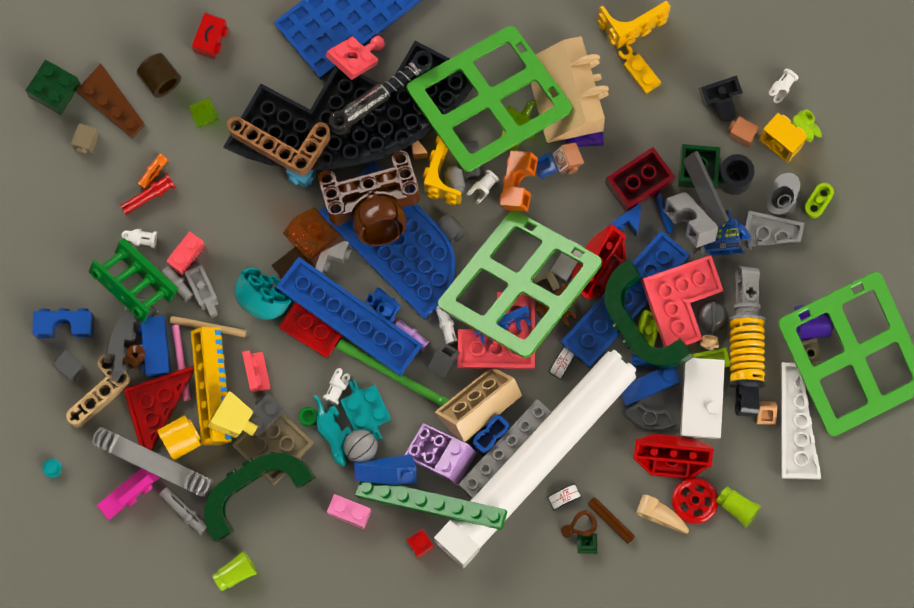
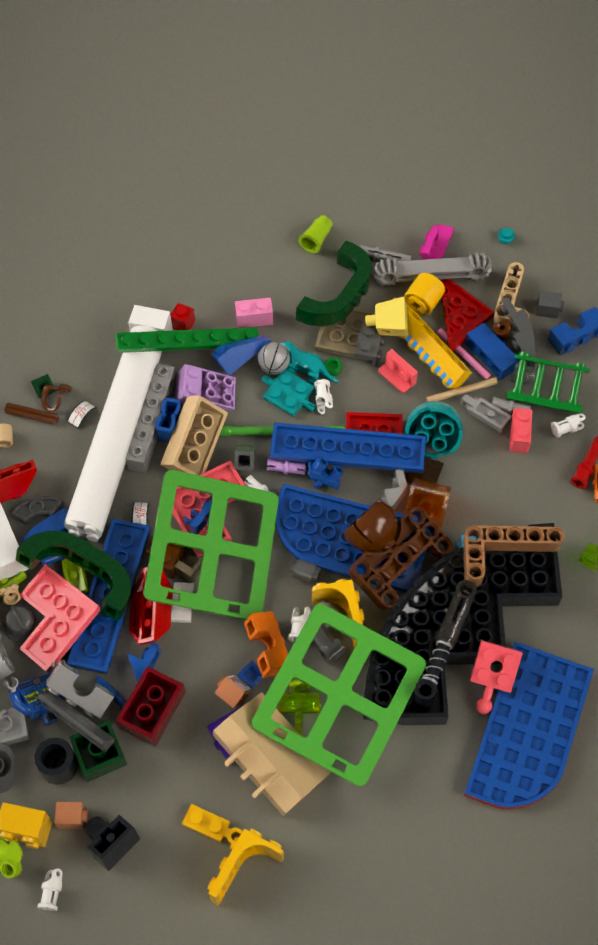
camera: 150 degrees right, 15 degrees down
(419, 151) = (377, 623): light nougat slope -> none

